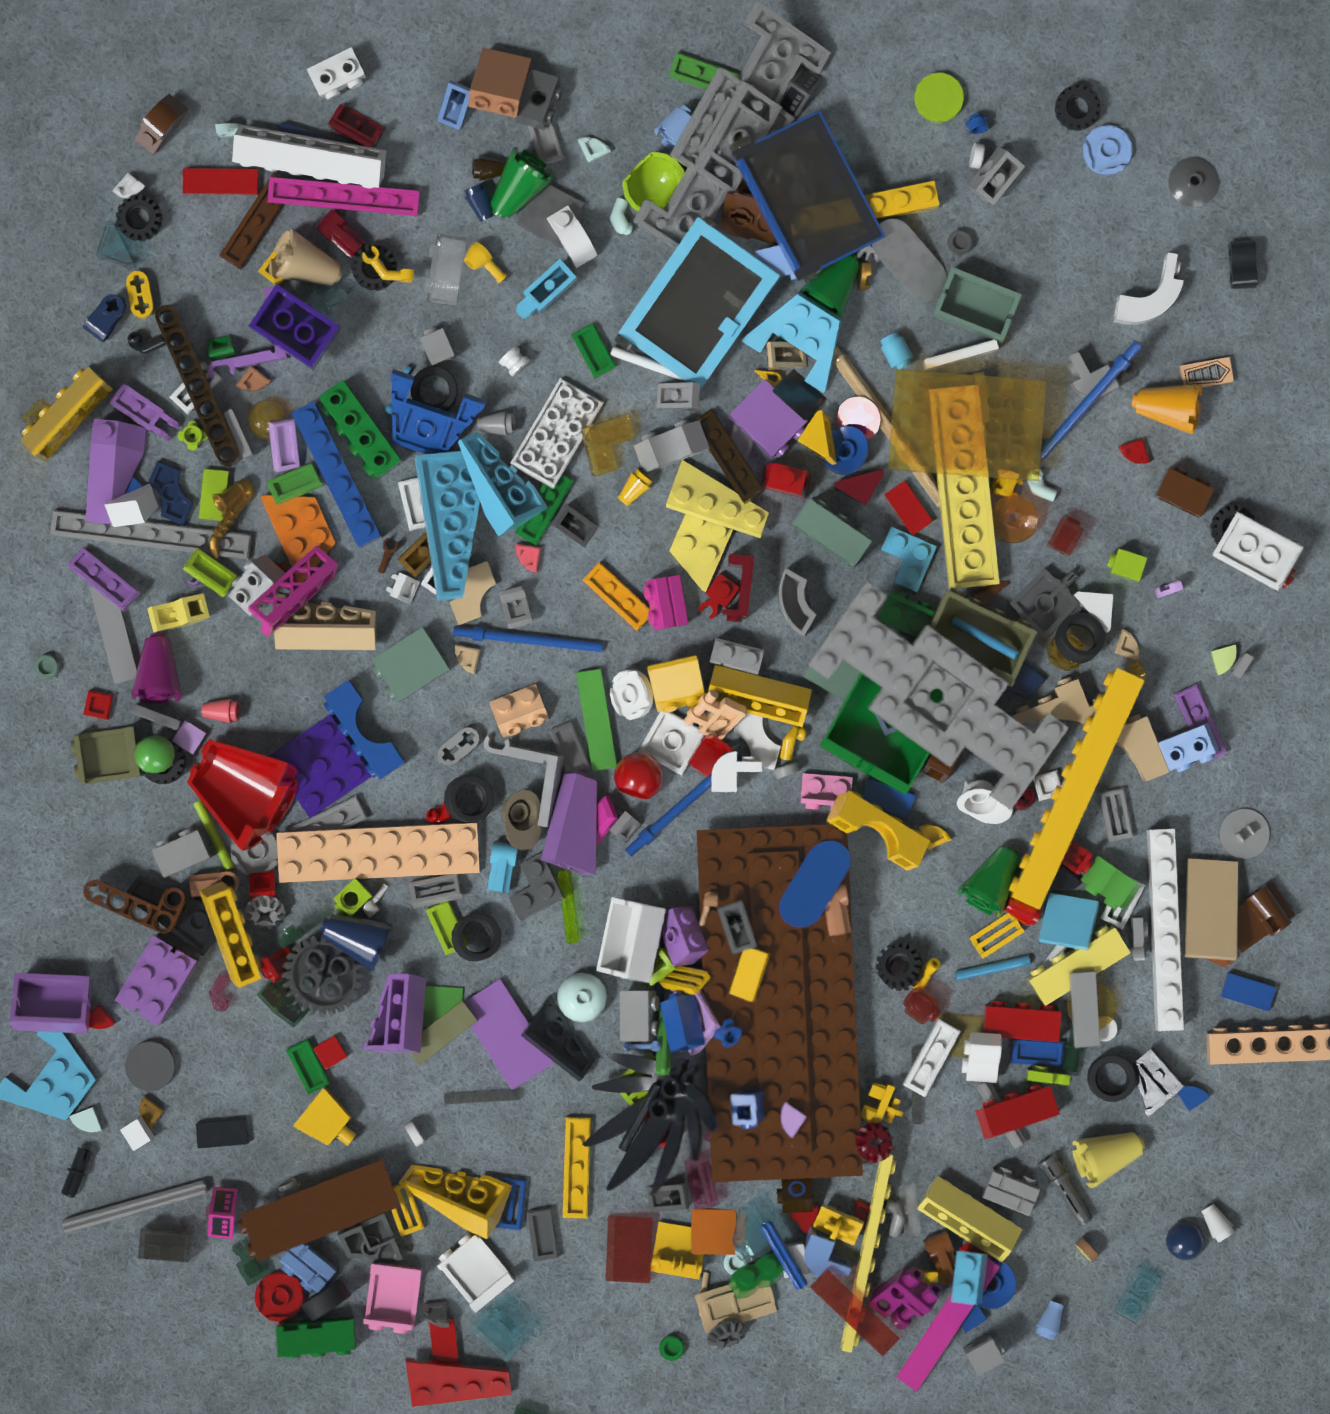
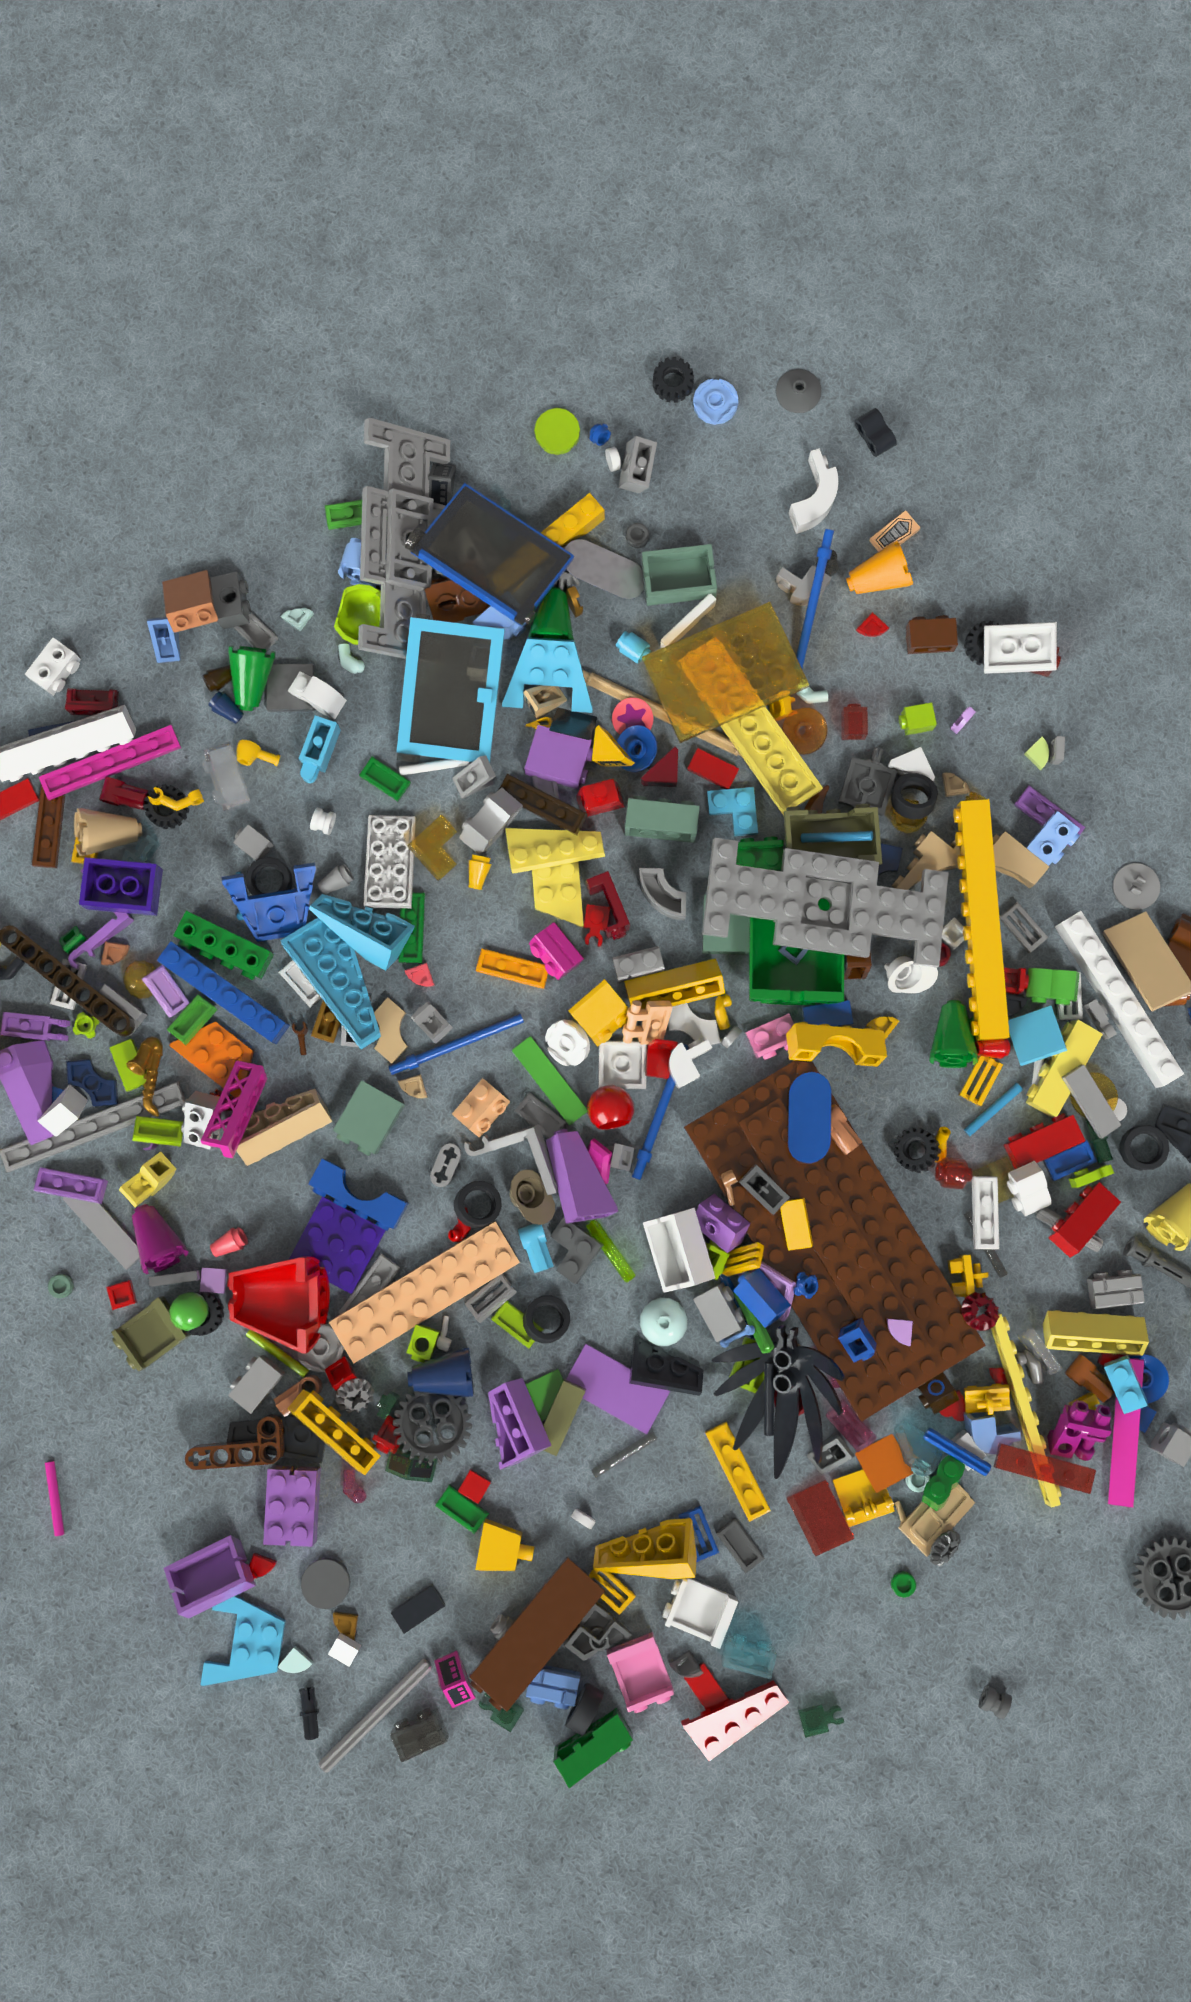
camera: 25 degrees left, 5 degrees down
(282, 1289) = (538, 1720): red tile -> none
(404, 588) = (329, 1056): white tile -> none
(574, 525) = (444, 928): dark grey slope -> none

